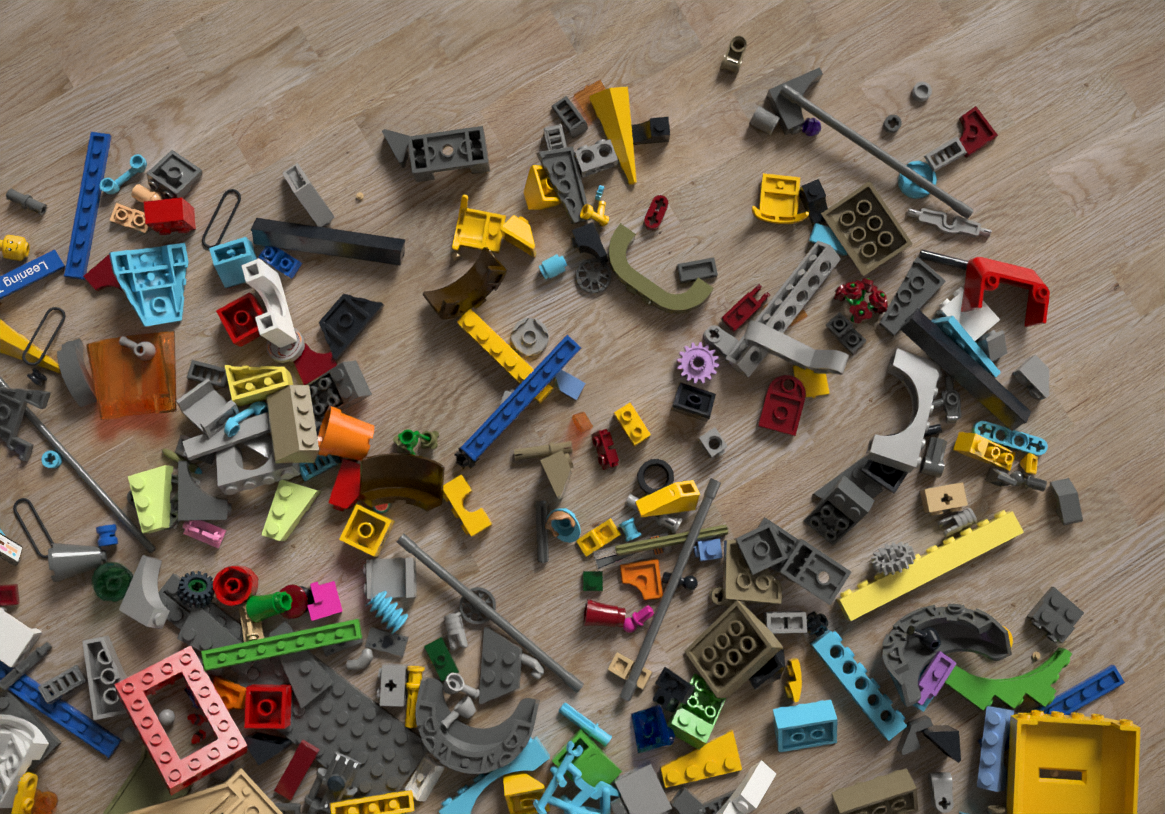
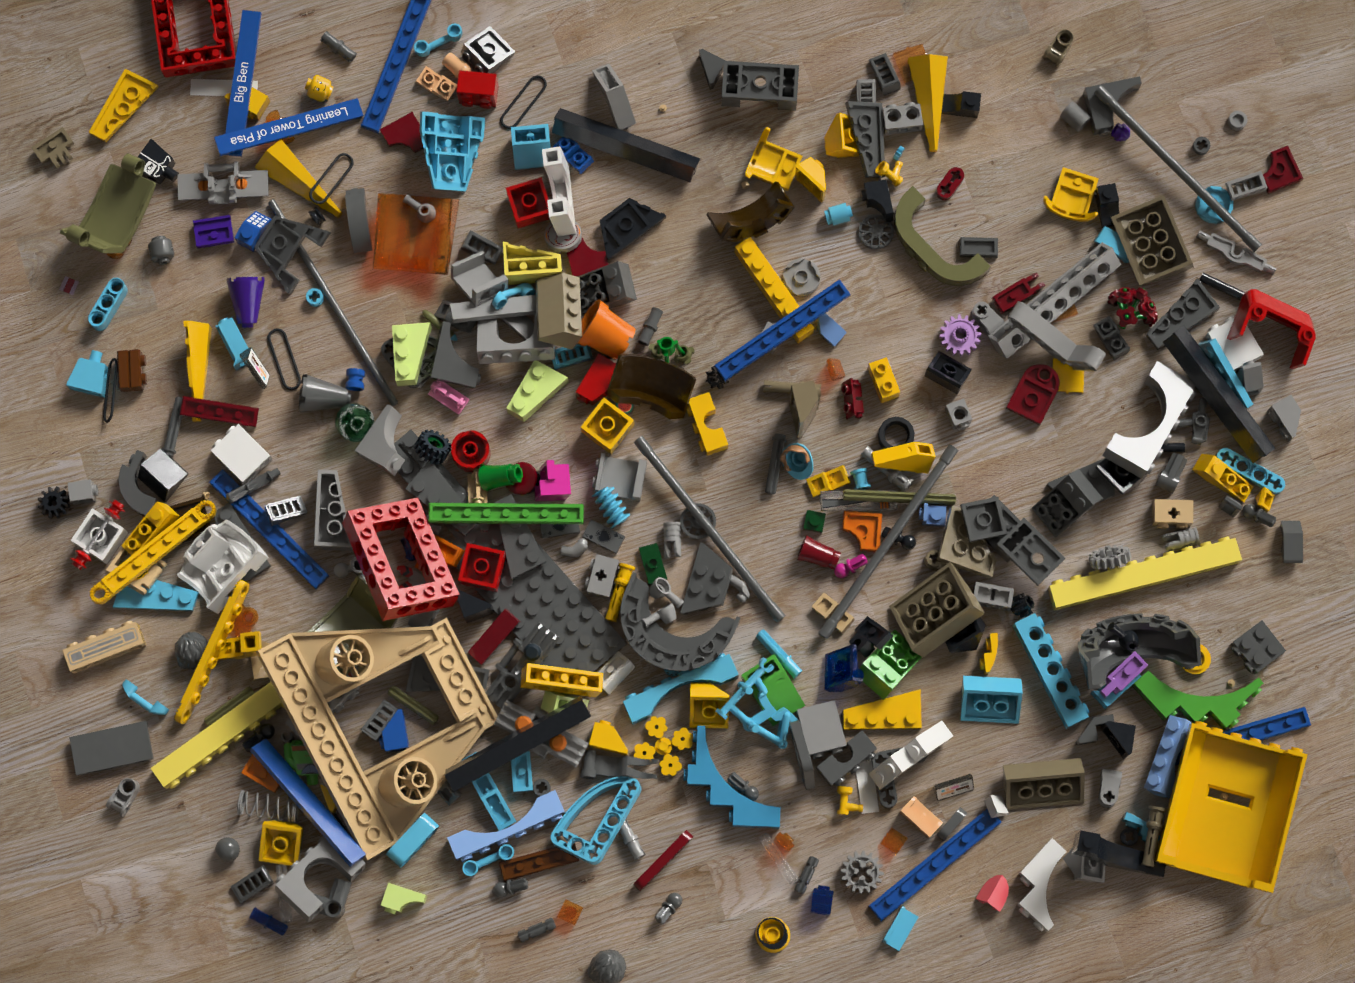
camera: 10 degrees right, 5 degrees down
(390, 418) = (650, 326): none -> dark grey pin

